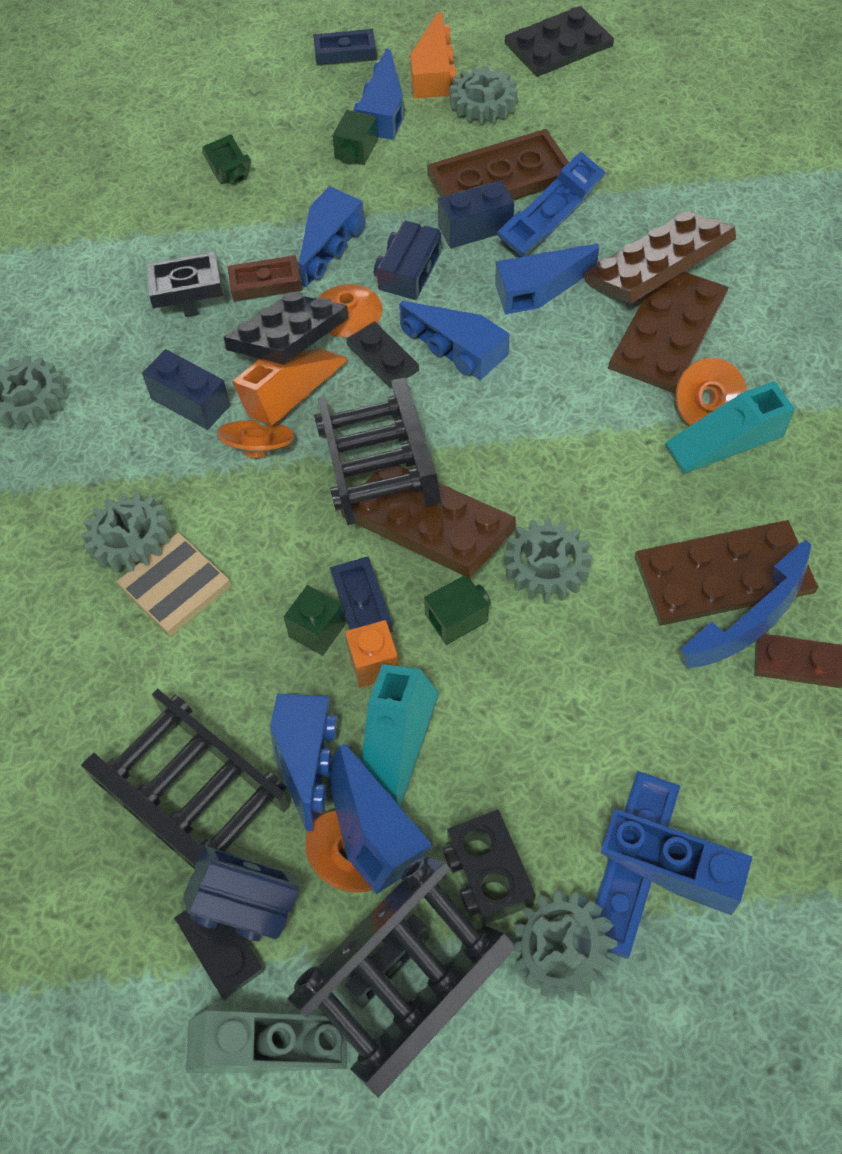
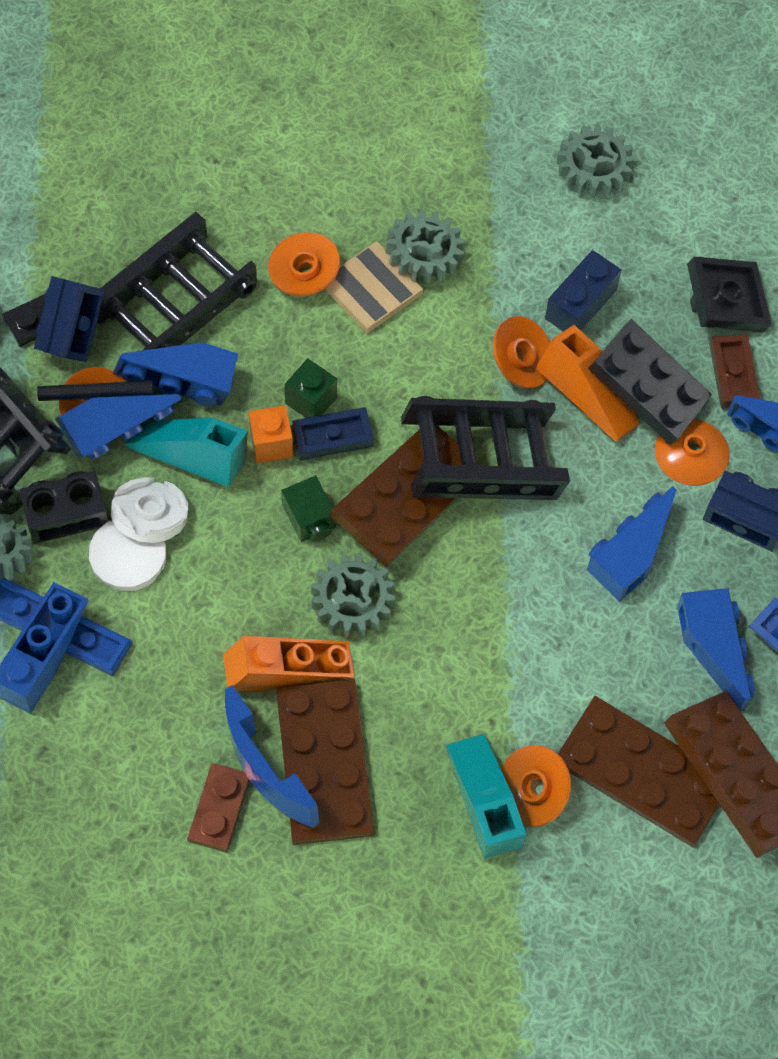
camera: 90 degrees right, 5 degrees up
(140, 631) = (301, 252): none -> orange dish
(343, 843) = (94, 390): none -> black bar
(382, 354) = (624, 477): black plate -> none
(478, 772) = (149, 510): none -> white tile
(532, 792) = (124, 561): none -> white tile
(638, 615) = (275, 662): none -> orange slope

